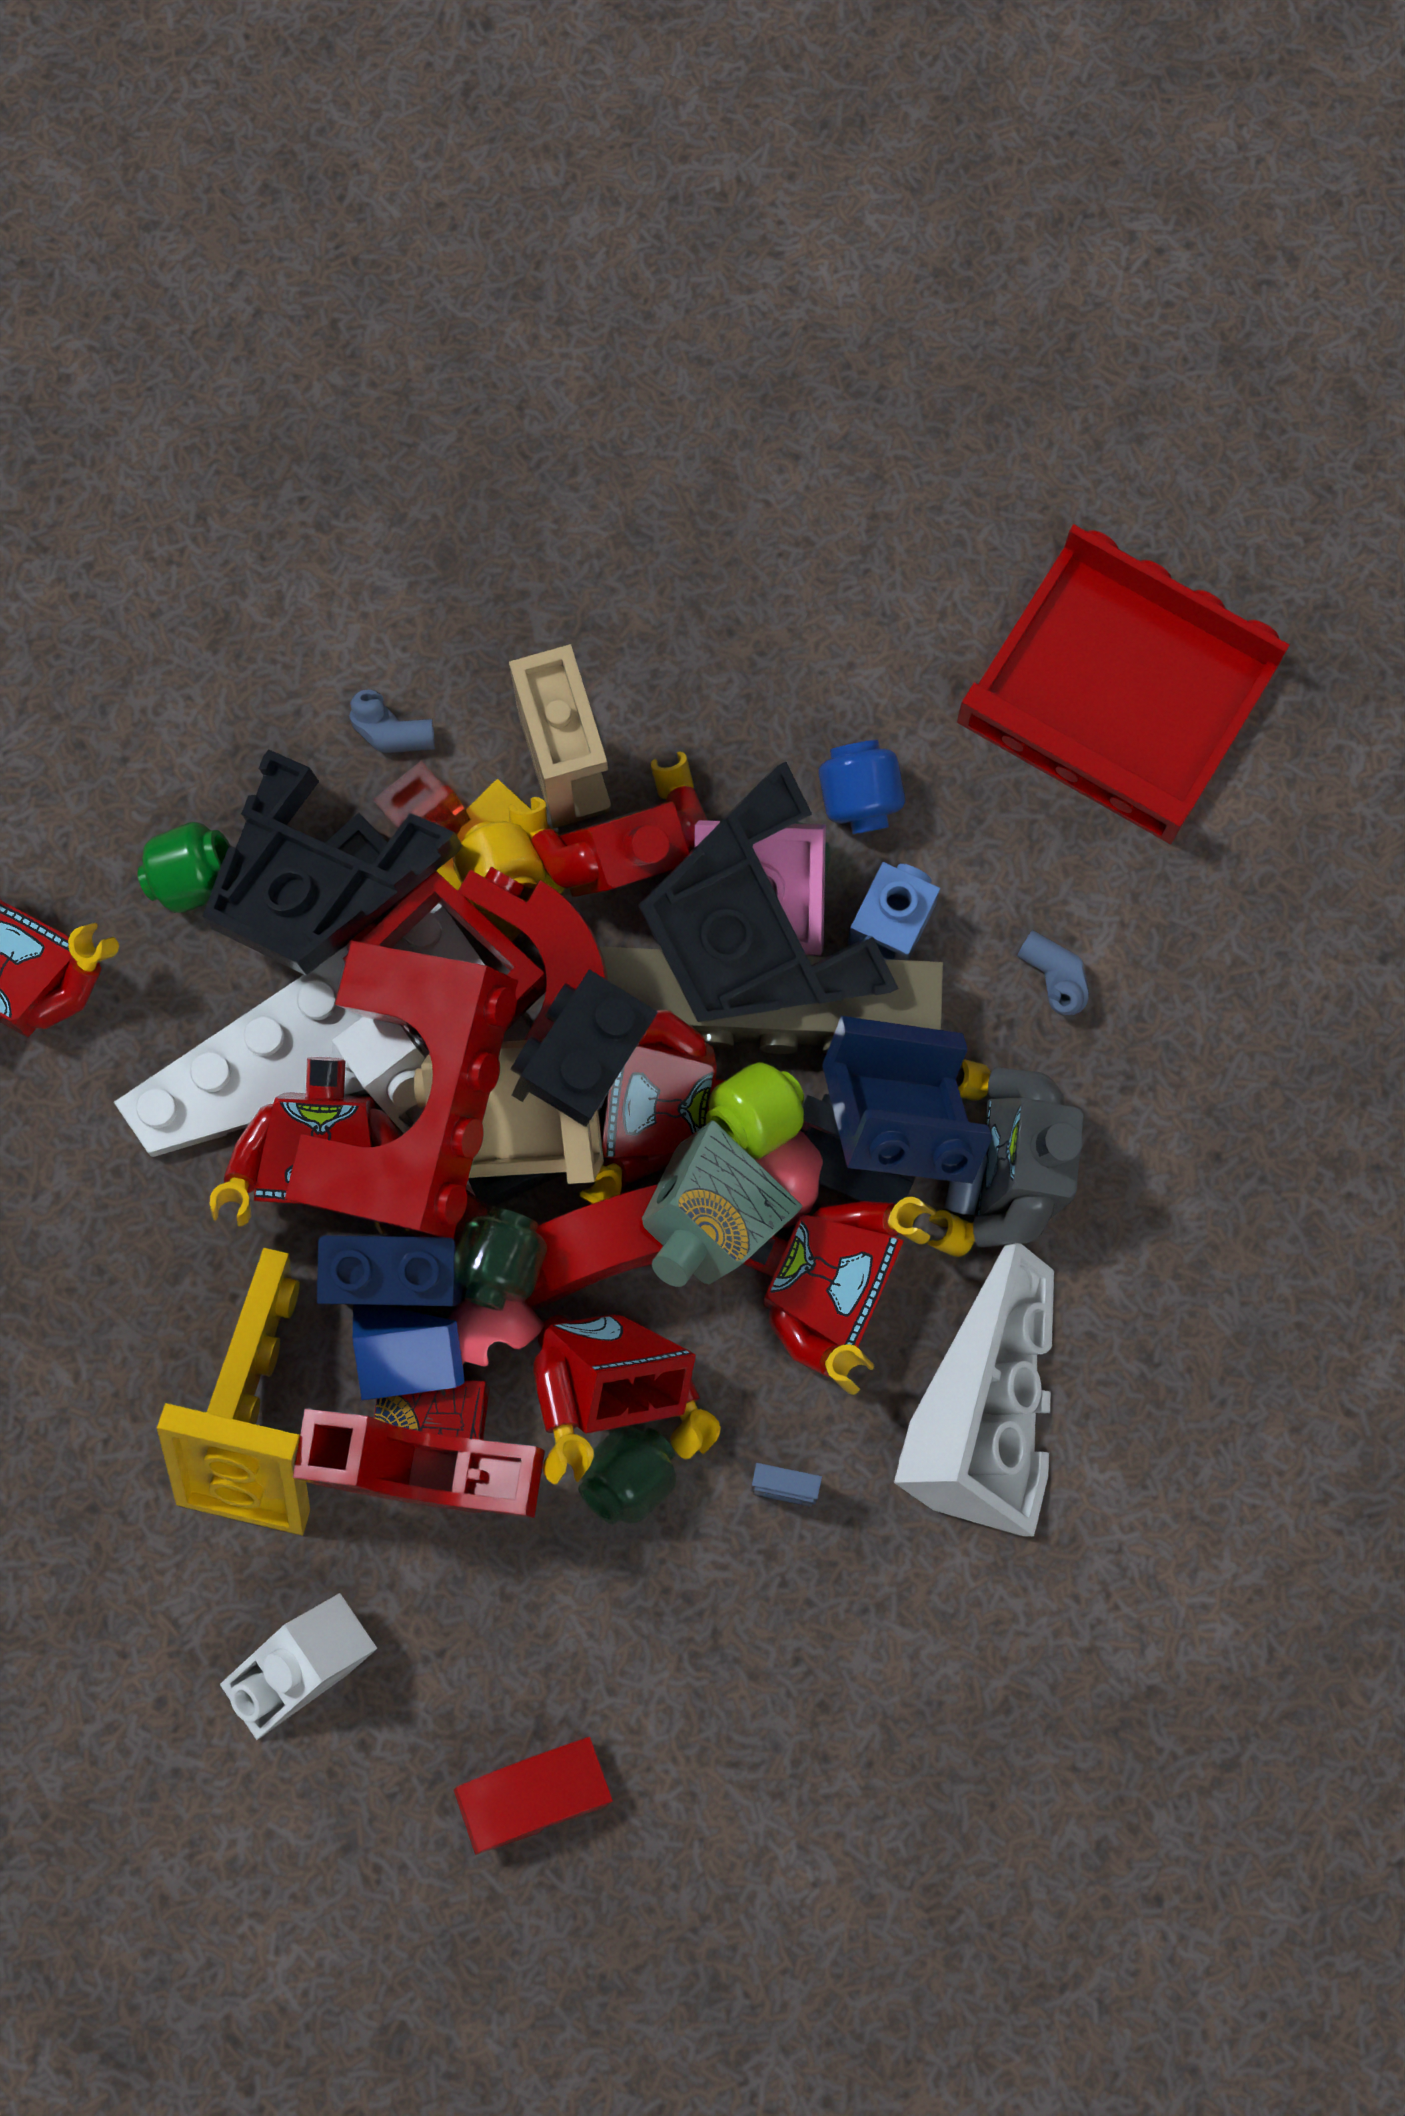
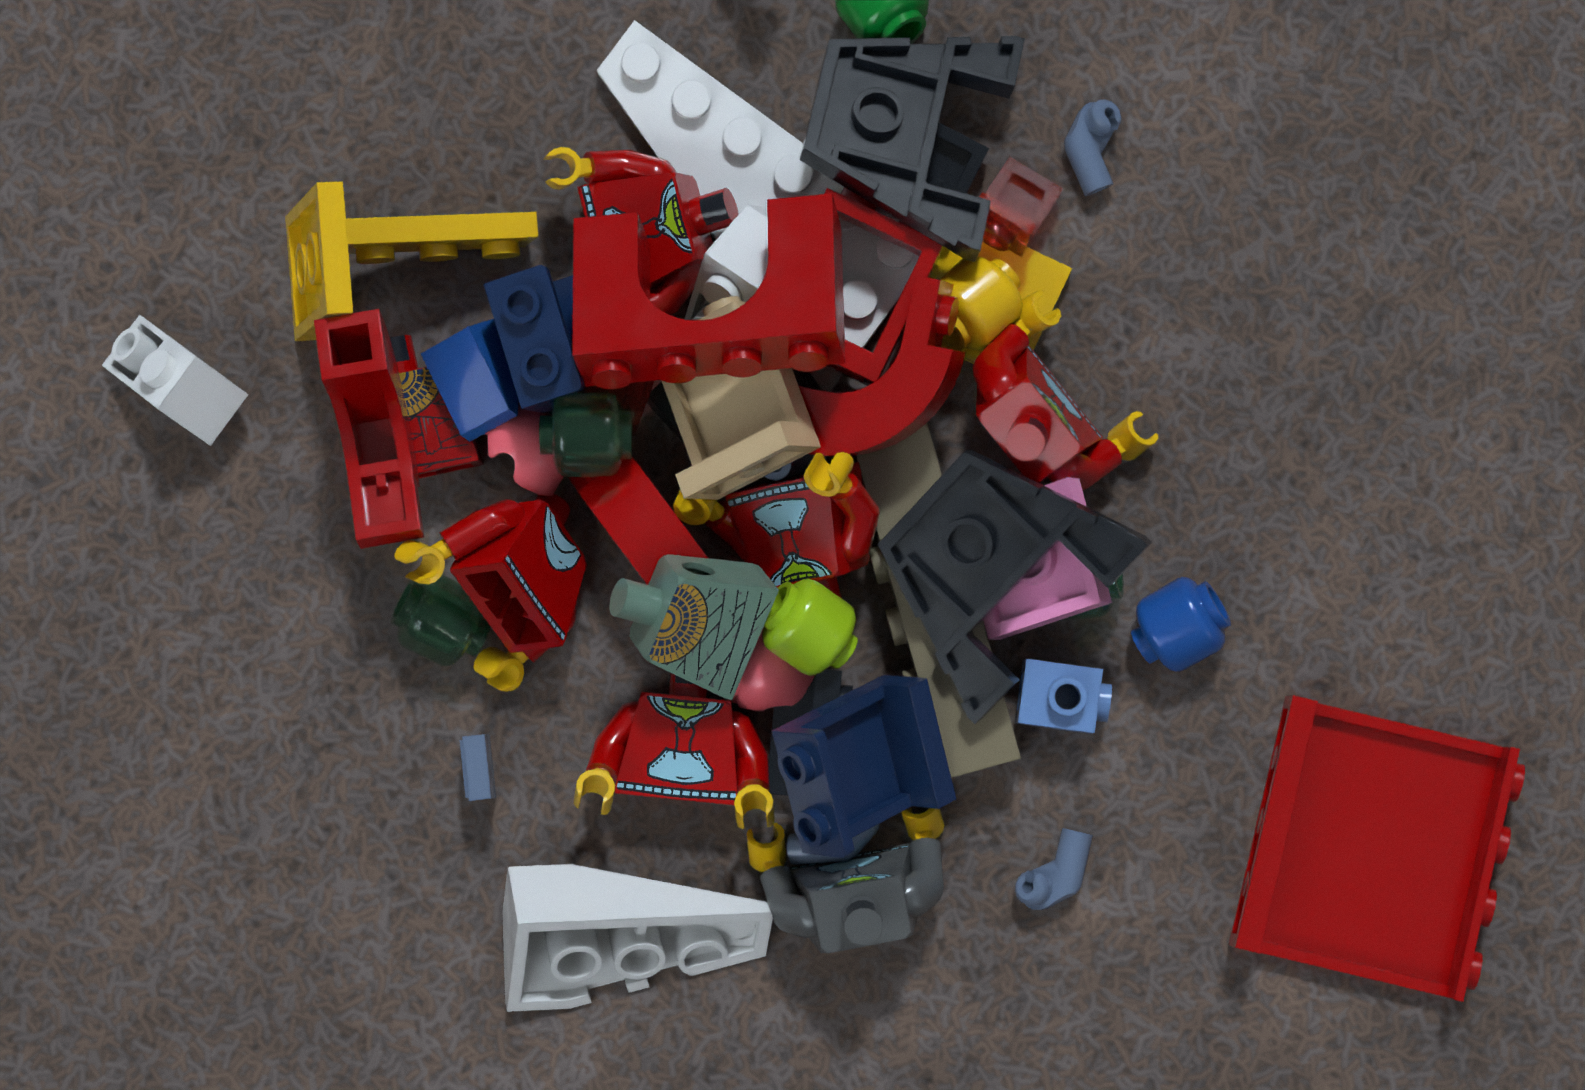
camera: 75 degrees right, 10 degrees up
(532, 1795) = (128, 630): red slope -> none
(561, 735) = (1119, 317): tan panel -> none
(584, 1049) = (794, 448): black bracket -> none

